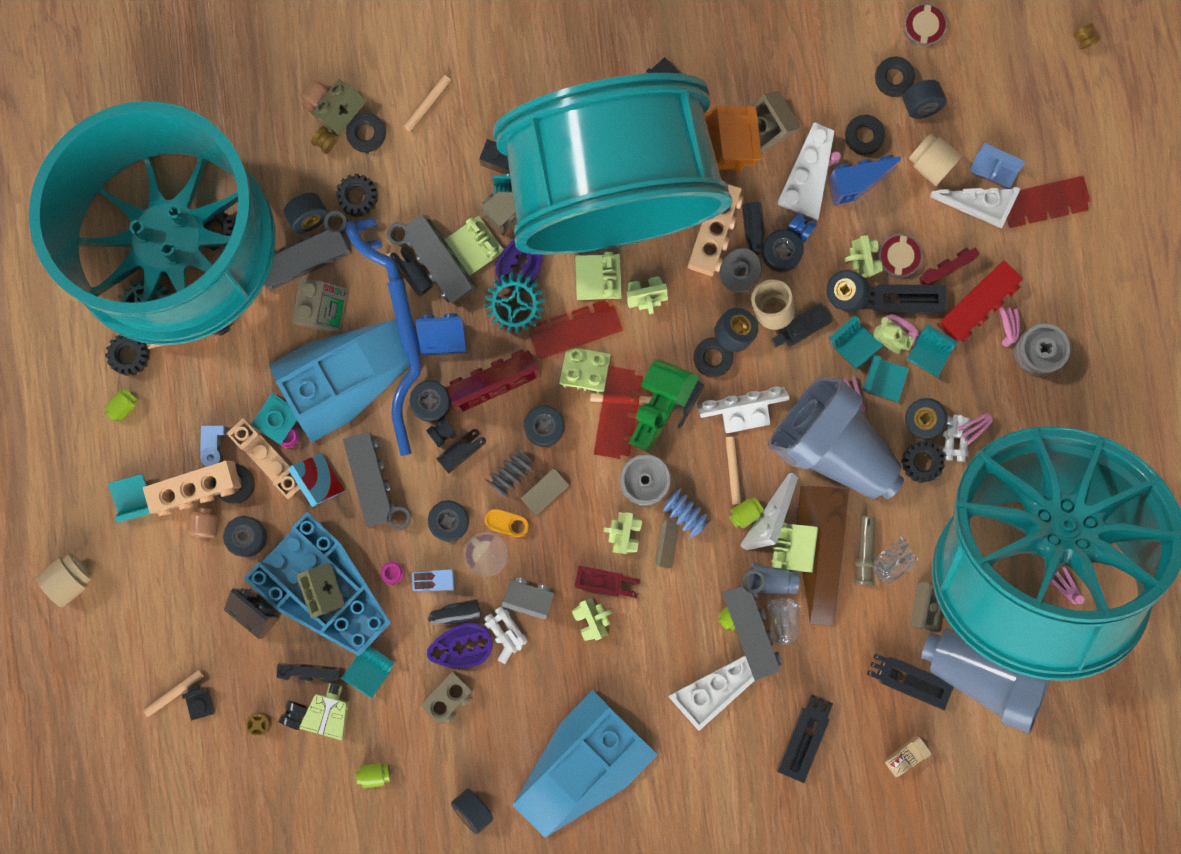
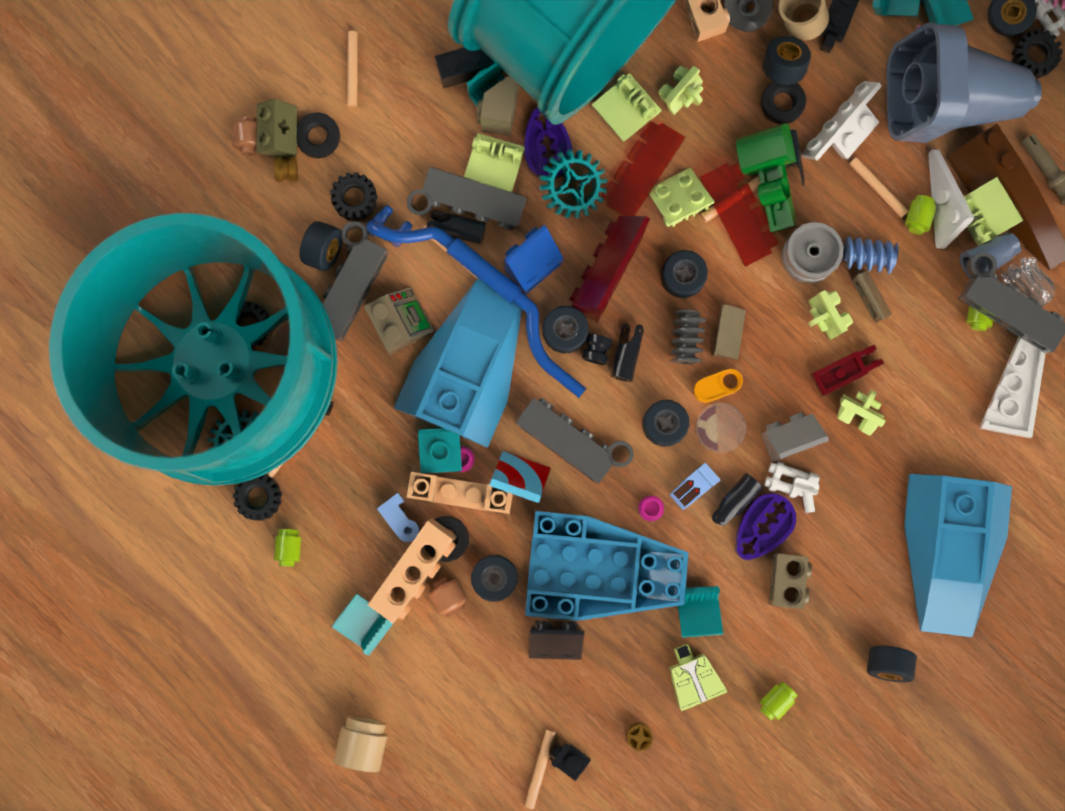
camera: 40 degrees left, 0 degrees up
(293, 715) = (664, 704): black wheel -> none
(308, 672) = (646, 655): black hinge -> none
(320, 590) = (604, 572): olive brick -> none

